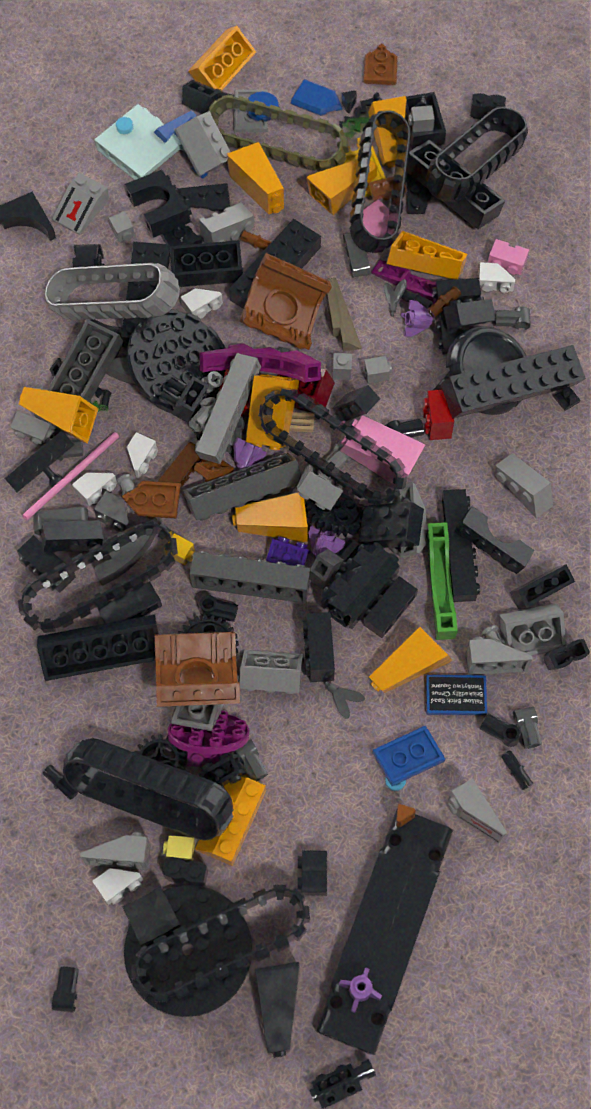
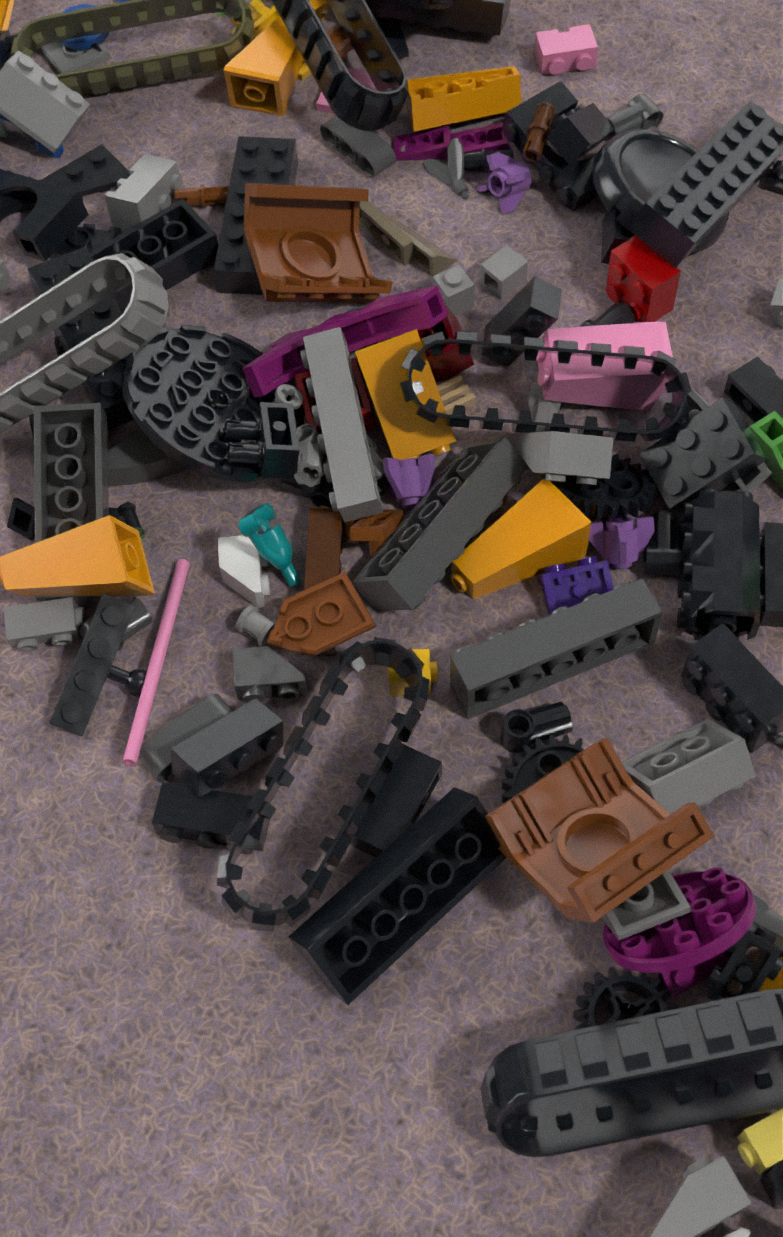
camera: 30 degrees left, 5 degrees down
(59, 782) = (490, 1160): black axle -> none
(93, 486) = (203, 656): white slope -> none
(124, 558) = (329, 741): dark grey slope -> none
(160, 451) = (272, 543): none -> teal piece
(201, 301) = (188, 306): white slope -> none
(256, 176) = (145, 112): light orange slope -> none
(325, 568) = (658, 568): flat silver slope -> none
(494, 277) = (579, 78): white slope -> none

